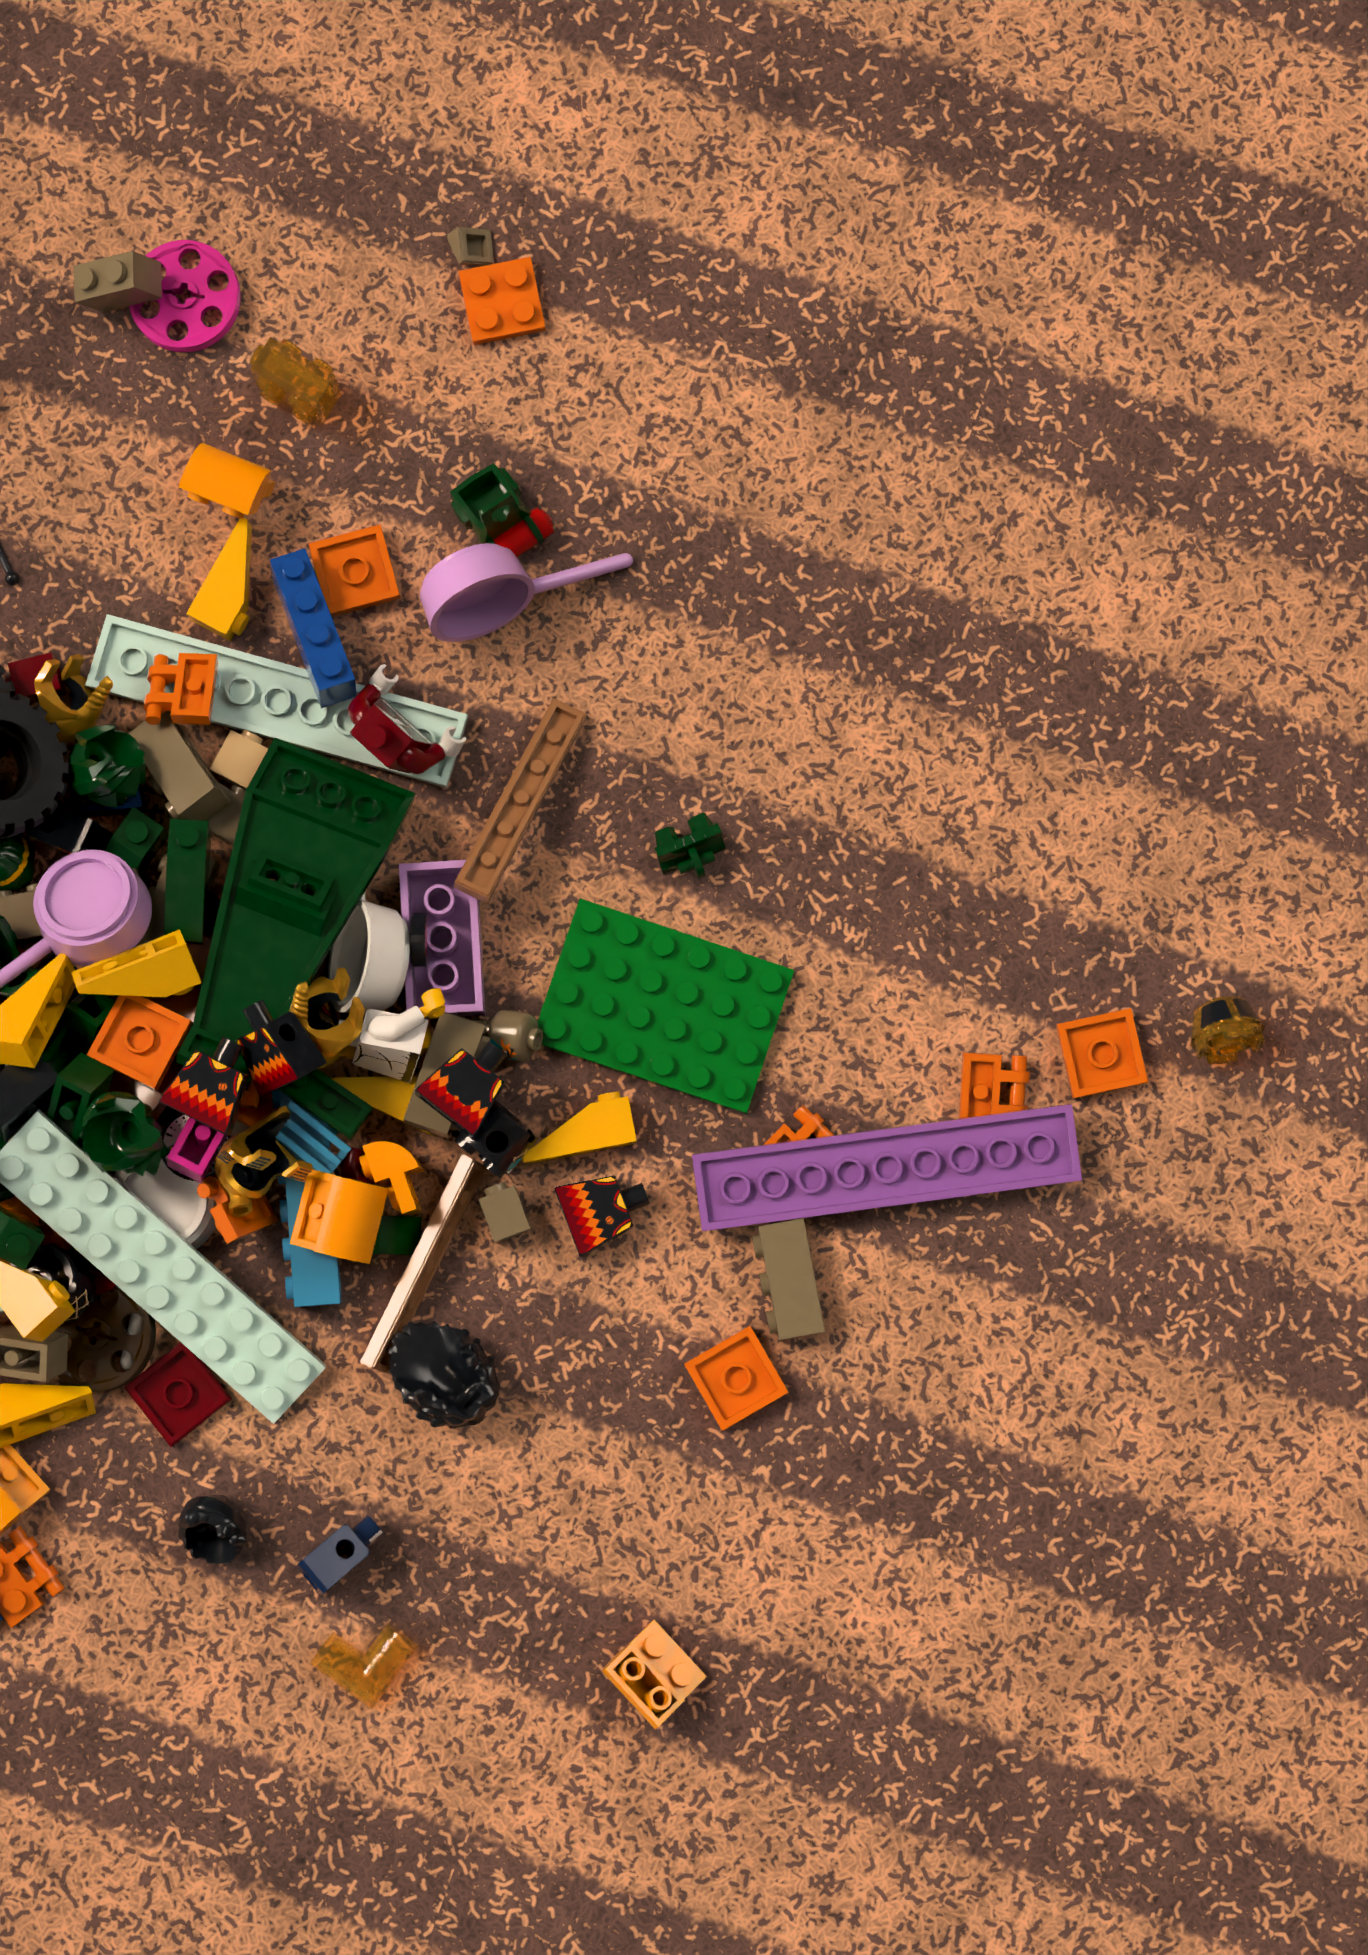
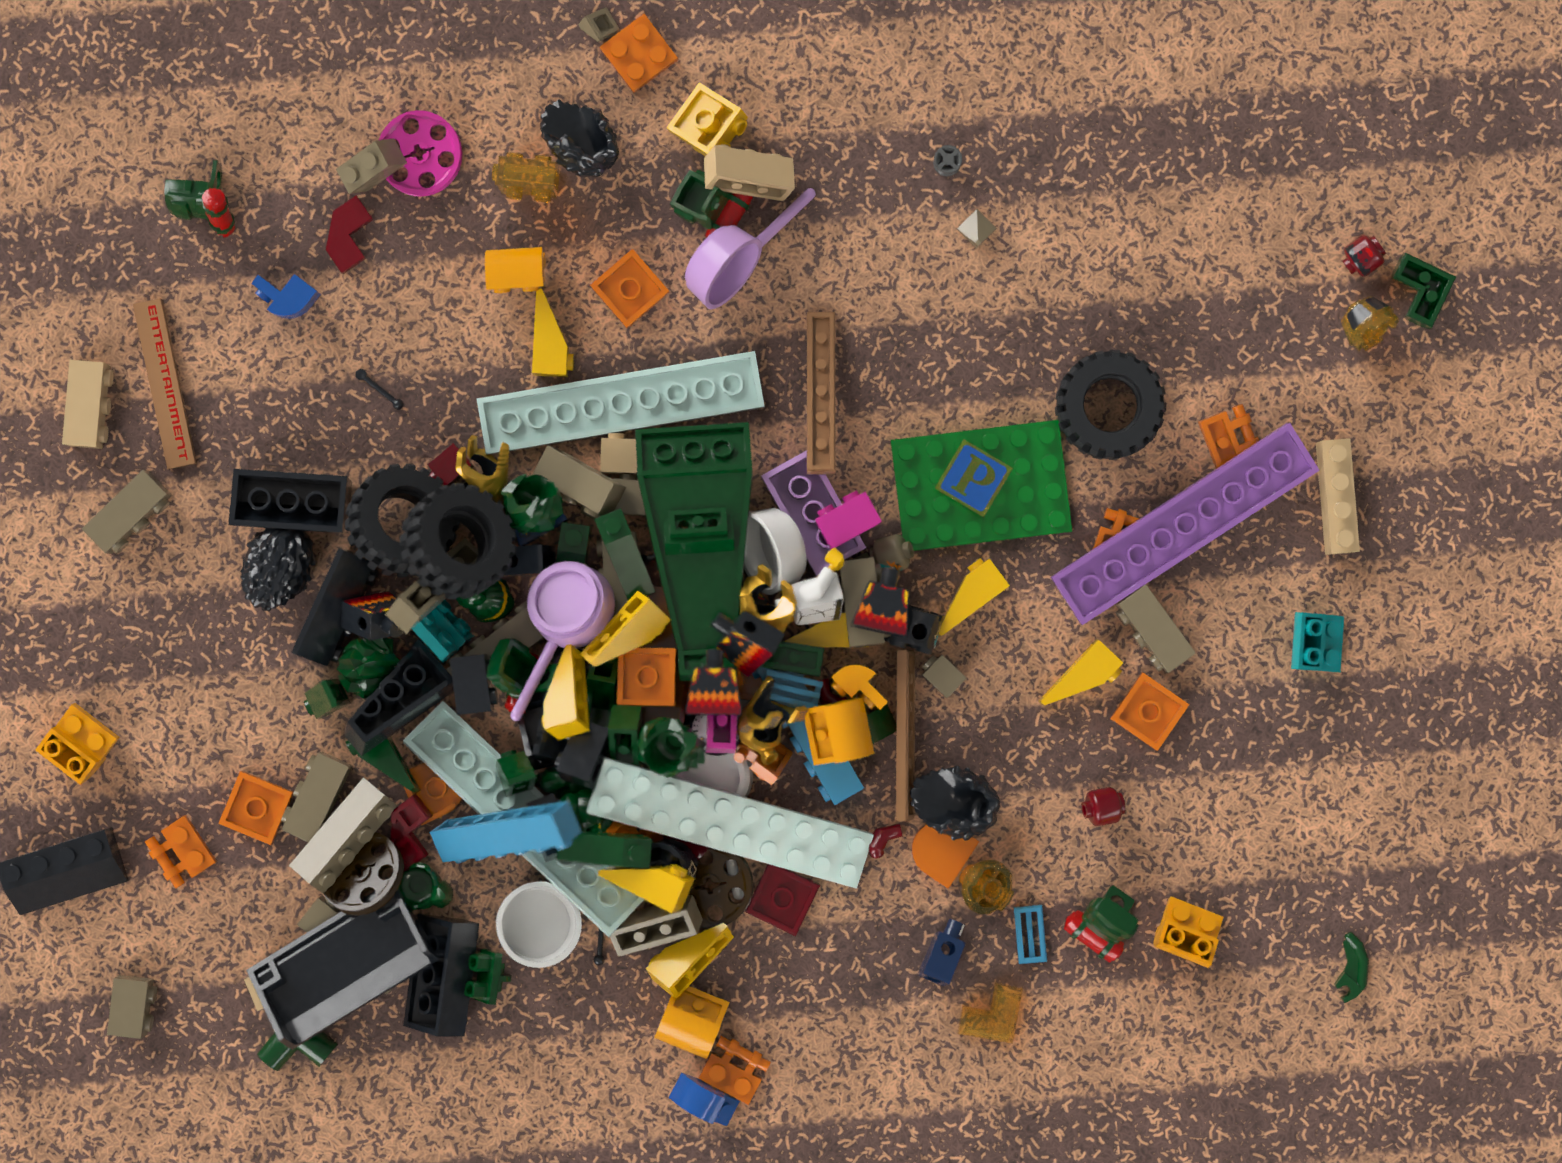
camera: 25 degrees left, 5 degrees up
(55, 335) = (344, 222): none -> dark red tile
(193, 689) = (564, 424): orange plate -> none
(212, 1529) = (851, 976): black hair -> none
(313, 628) = (623, 342): blue brick -> none
(333, 1376) = (881, 837): none -> dark red arm
(379, 365) = (579, 138): none -> black hair
(391, 735) = (712, 390): dark red torso -> none
(395, 1433) = (940, 855): none -> orange tile
(418, 939) = (800, 520): black tile -> none
(431, 1496) = (986, 886): none -> clear yellow cone
(470, 1553) = (1018, 928): none -> dark azure tile
(474, 965) = (847, 520): none -> dark pink brick
(543, 419) = (707, 120): none -> yellow plate
(553, 1614) = (1104, 924): none -> dark green piece
(561, 498) = (749, 172): none -> tan brick
(598, 1210) = (1005, 644): torso -> none
(623, 1468) = (1103, 806): none -> dark red head
(654, 989) = (973, 478): none -> piece
(682, 1293) = (1088, 671): none -> yellow slope
(692, 850) = (951, 372): dark green hips -> none
(806, 695) = (976, 228): none -> dark tan slope
(807, 590) = (951, 157): none -> dark grey wheel
(841, 1822) = (1356, 969): none -> dark green piece
(874, 929) = (1137, 377): none -> black tyre
(982, 1391) = (1317, 642): none -> teal brick
(1090, 1224) = (1337, 496): none -> tan brick
(1101, 1053) = (1291, 378): orange plate -> none
(1259, 947) = (1364, 255): none -> dark red head
(1324, 1024) = (1431, 287): none -> dark green brick

